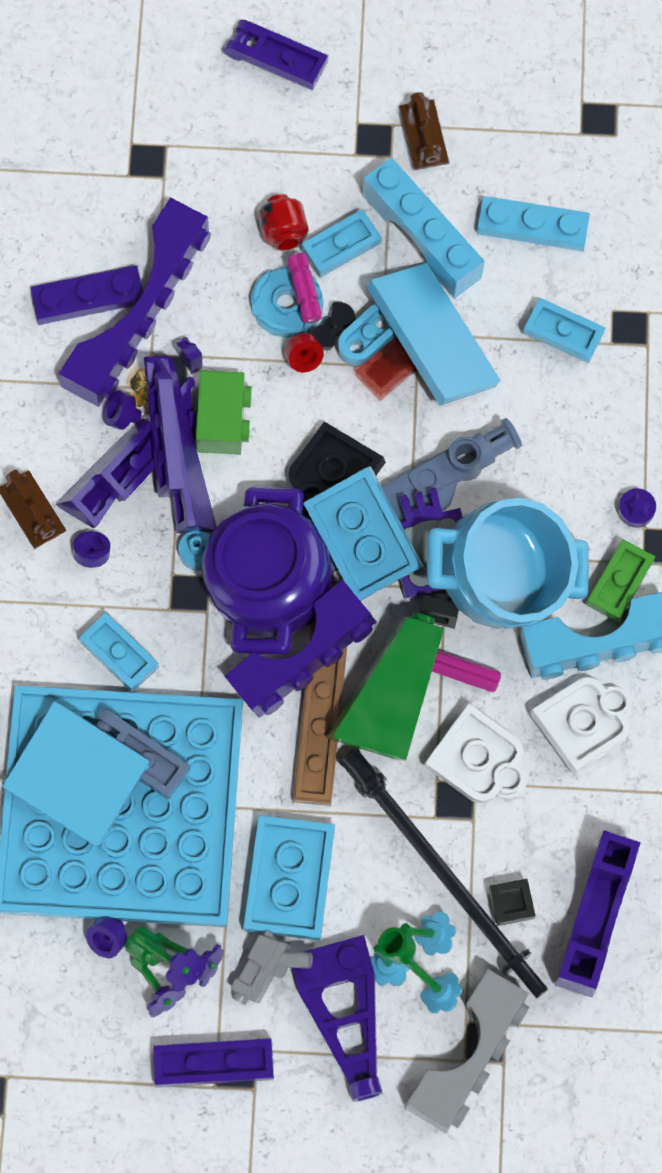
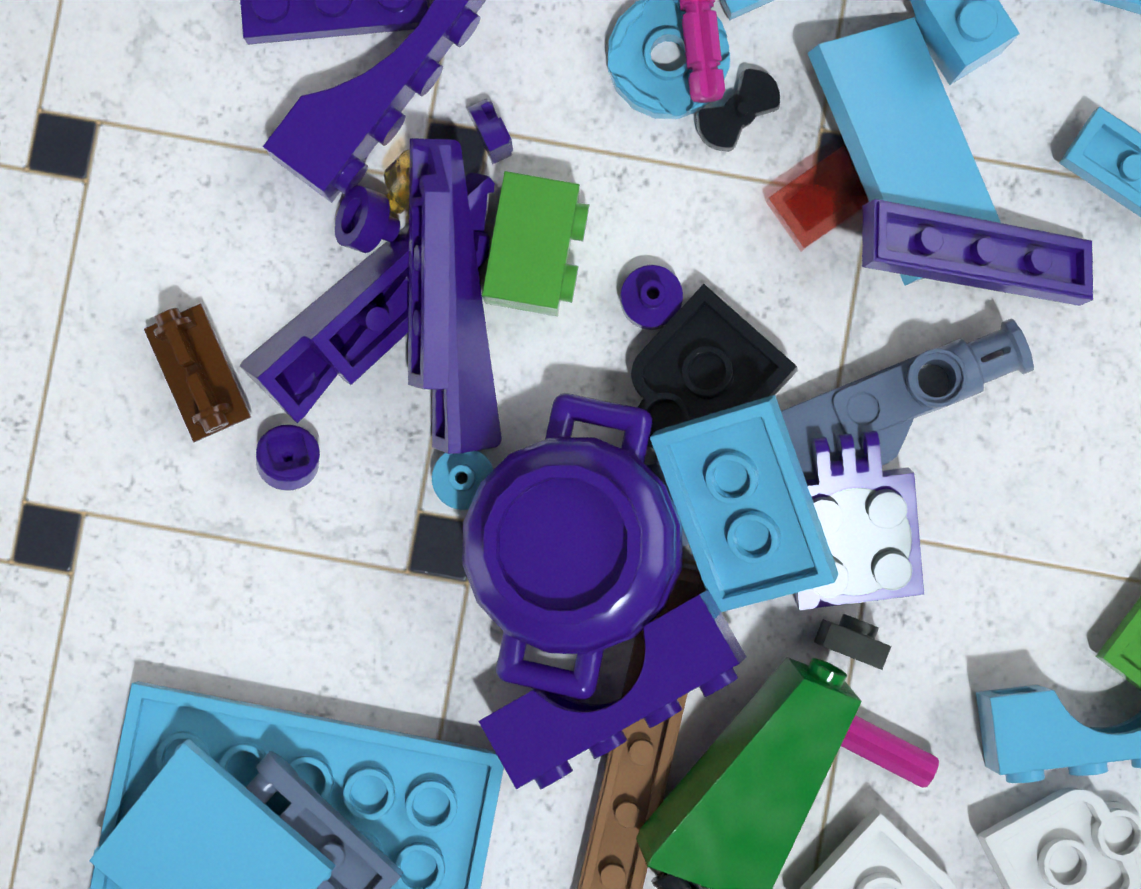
camera: 10 degrees right, 15 degrees up
(118, 652) = (311, 643): medium azure plate -> none
(294, 434) = (648, 312): none -> dark purple tile
(304, 353) = (685, 155): red tile -> none
(367, 335) = (796, 135): medium azure plate -> none
(479, 382) = (976, 253): none -> dark purple tile
(508, 563) = (987, 601): medium azure piece -> none

